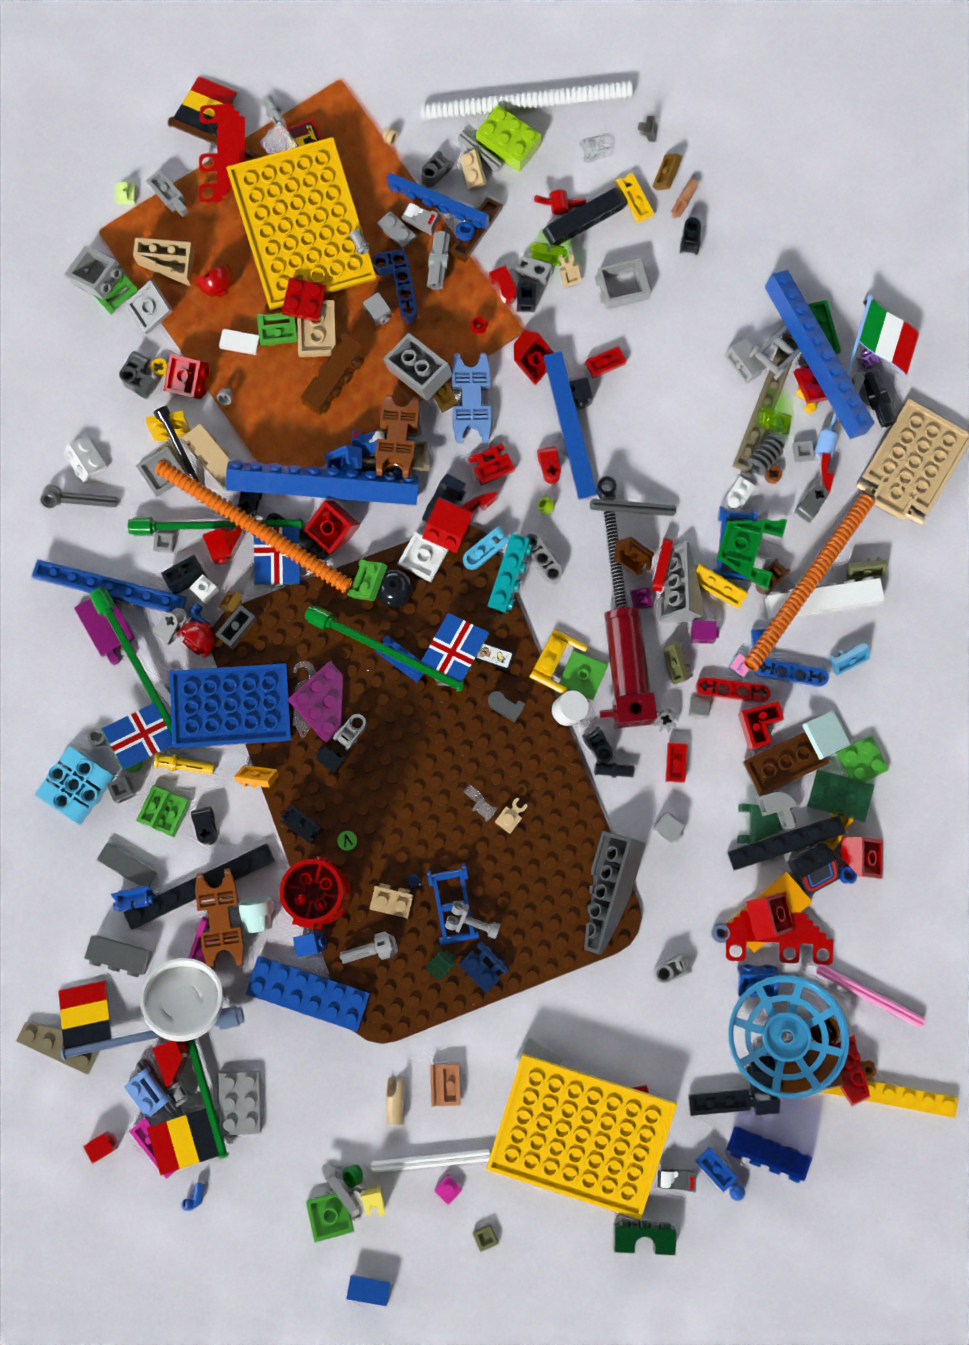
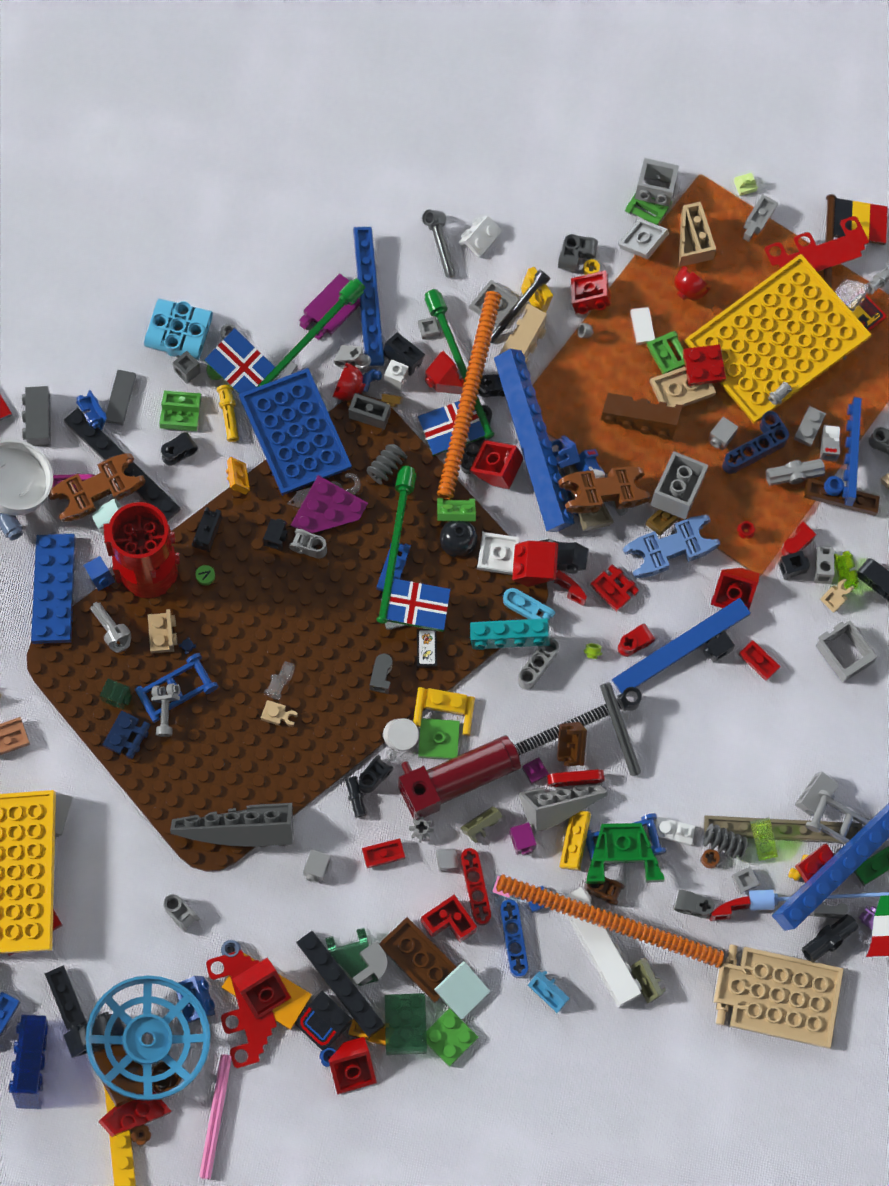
camera: 70 degrees right, 10 degrees down
(295, 630) = (385, 462): none -> dark grey piece

